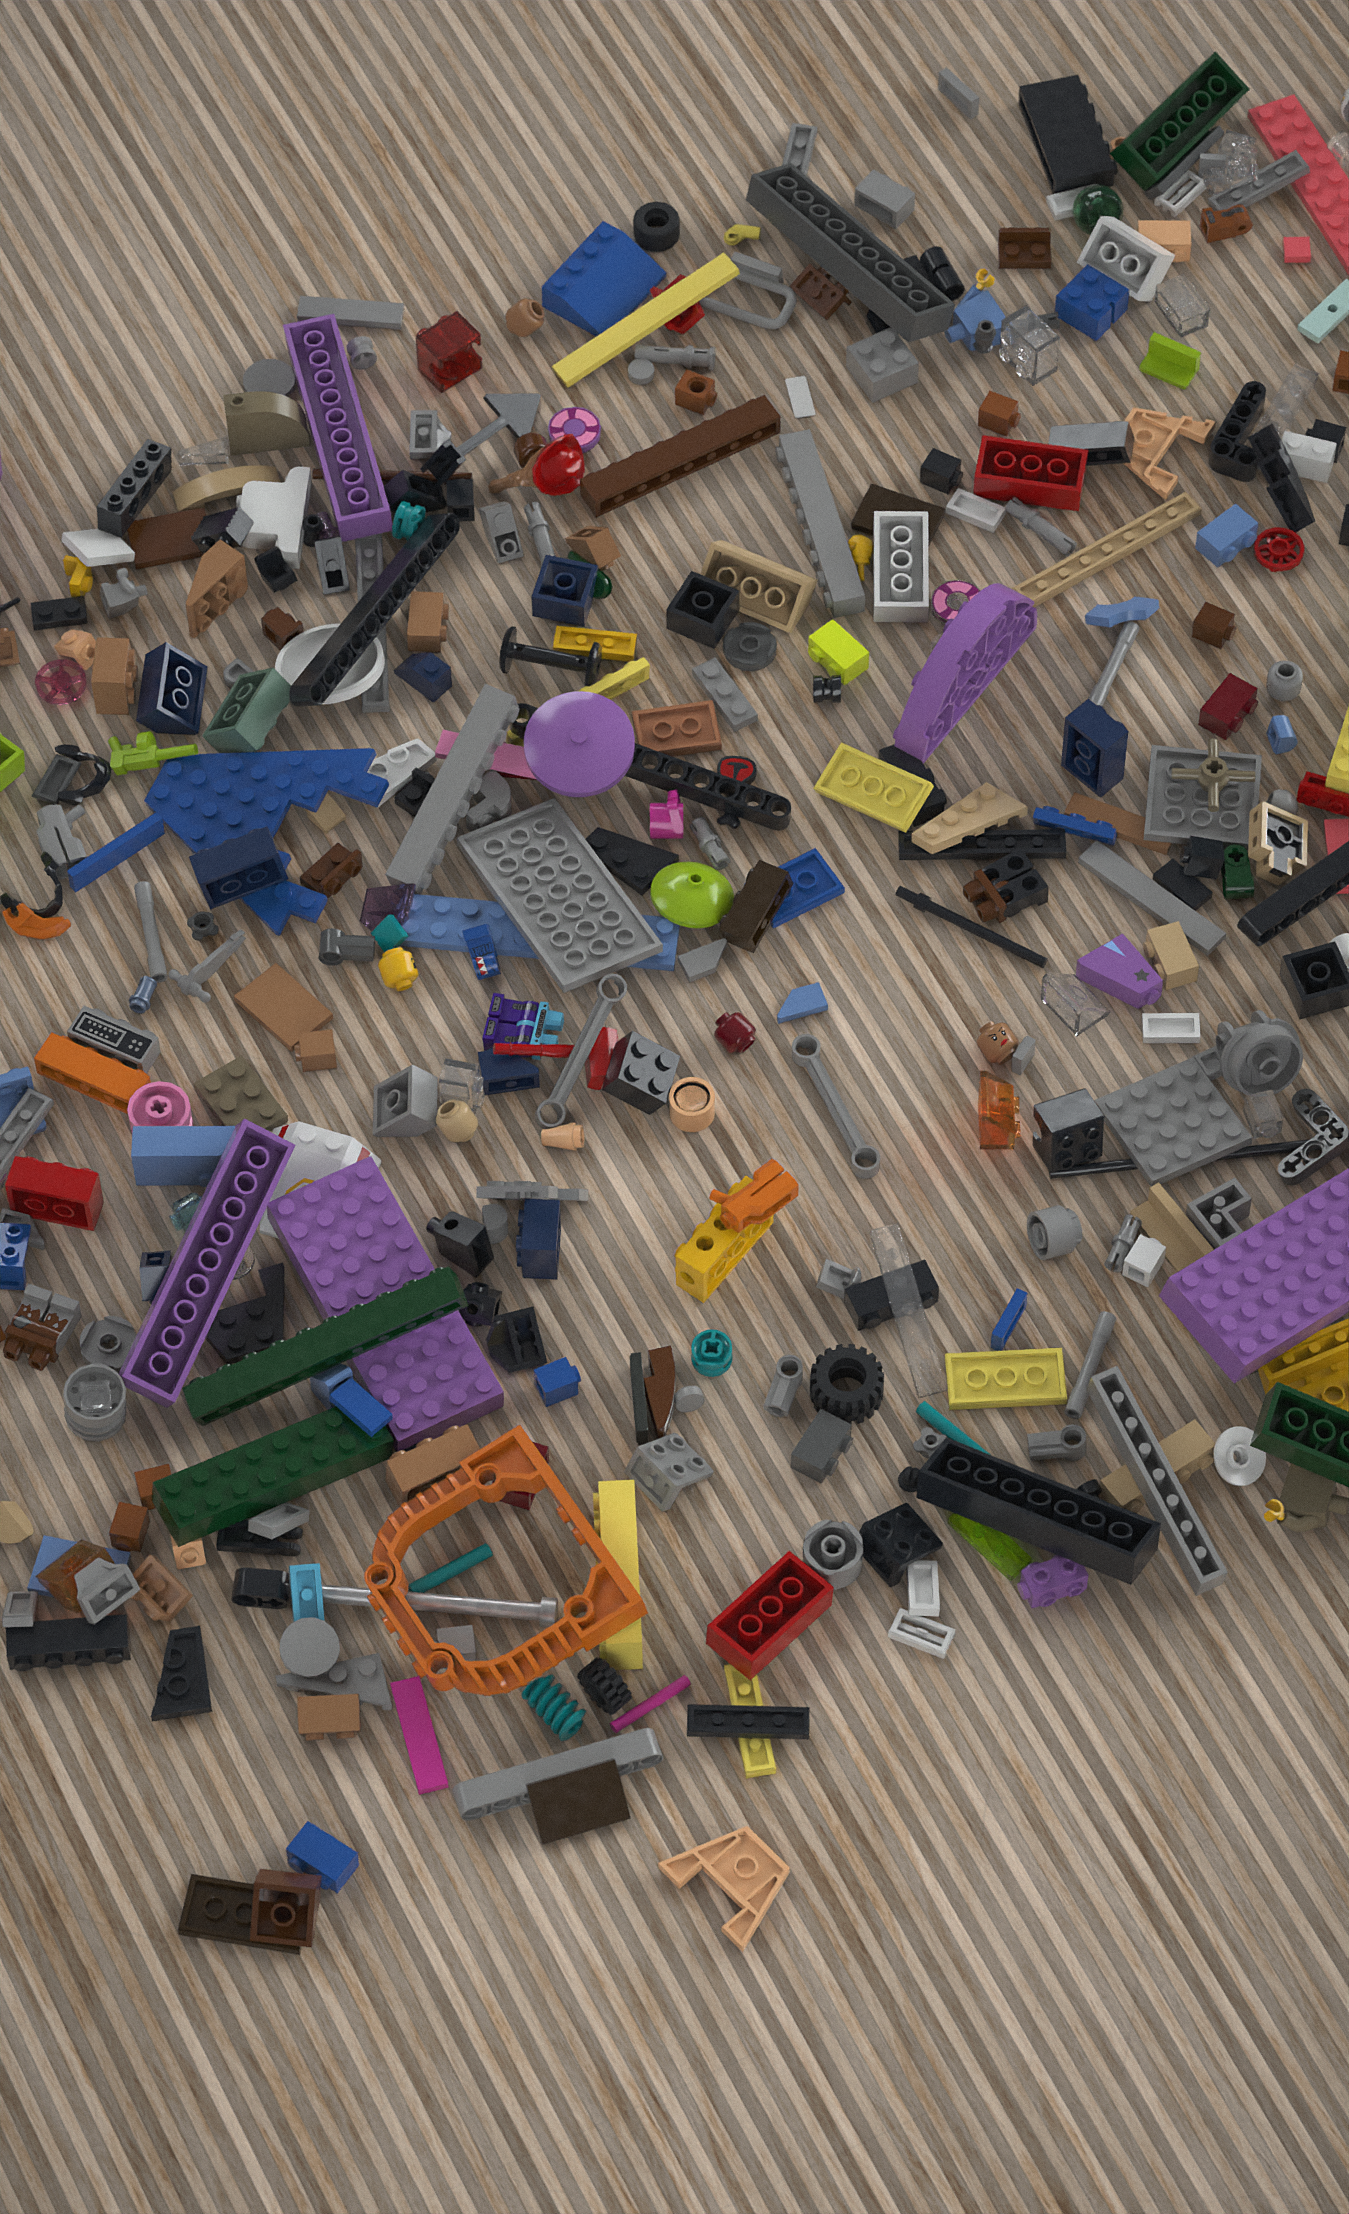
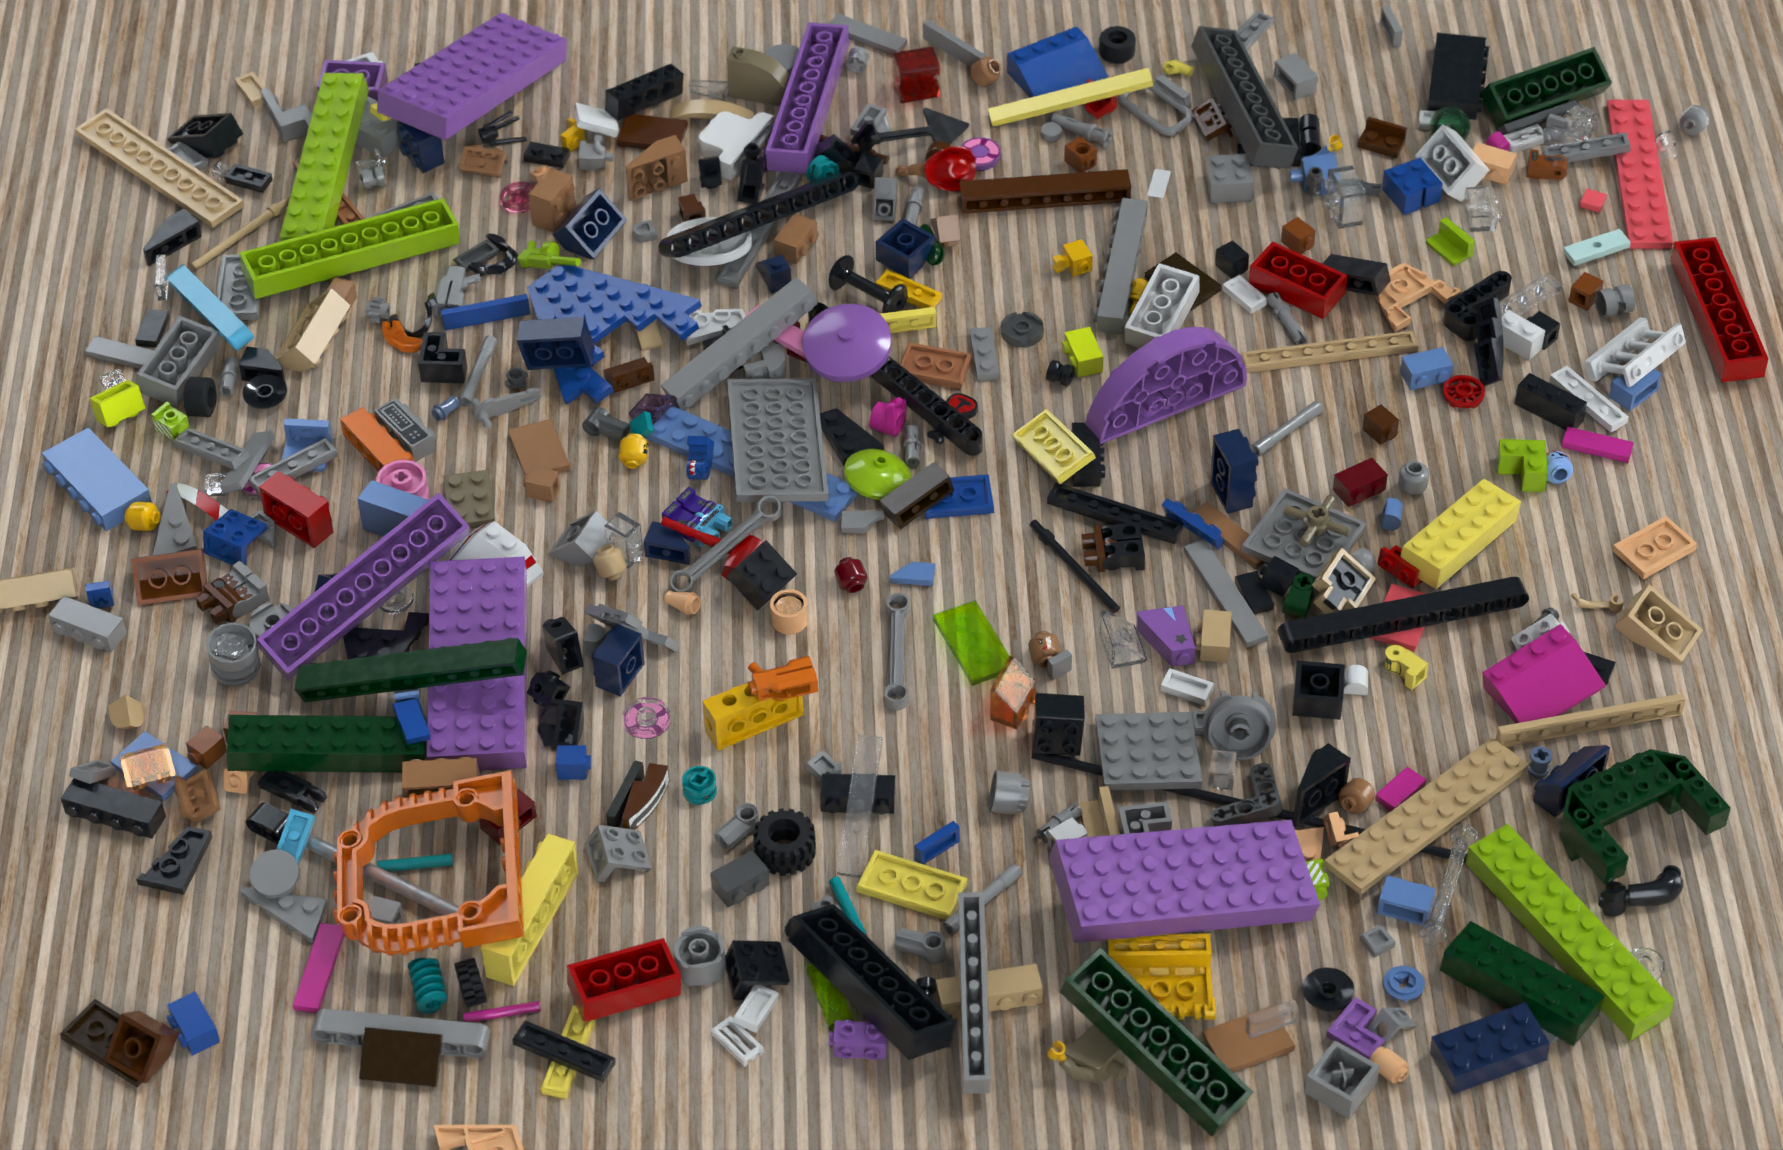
camera: 25 degrees right, 10 degrees down
(103, 1588) = (152, 774): light grey slope -> none
(105, 941) = (439, 363): none -> black brick
(228, 525) = (687, 131): black brick -> none
(248, 712) = (629, 252): sand green brick -> none
(278, 1520) = (310, 780): light grey tile -> none
(329, 1716) = (260, 926): medium nougat brick -> none
(464, 294) = (950, 44): none -> light grey tile
(603, 1294) = (646, 718): none -> clear tile
(688, 1399) = (662, 810): light grey tile -> none
(702, 609) = (998, 291): black brick -> none
(763, 532) = (1075, 258): none -> yellow brick
(765, 587) = (1048, 289): tan slope -> none
(912, 1063) = (972, 641): none -> clear neon green tile
(968, 817) = (1112, 490): tan wing -> none
(1133, 609) = (1305, 392): medium blue tile -> none
(1159, 211) = (1498, 141): none -> dark pink brick
(1248, 1462) = (1060, 1020): white dish -> none

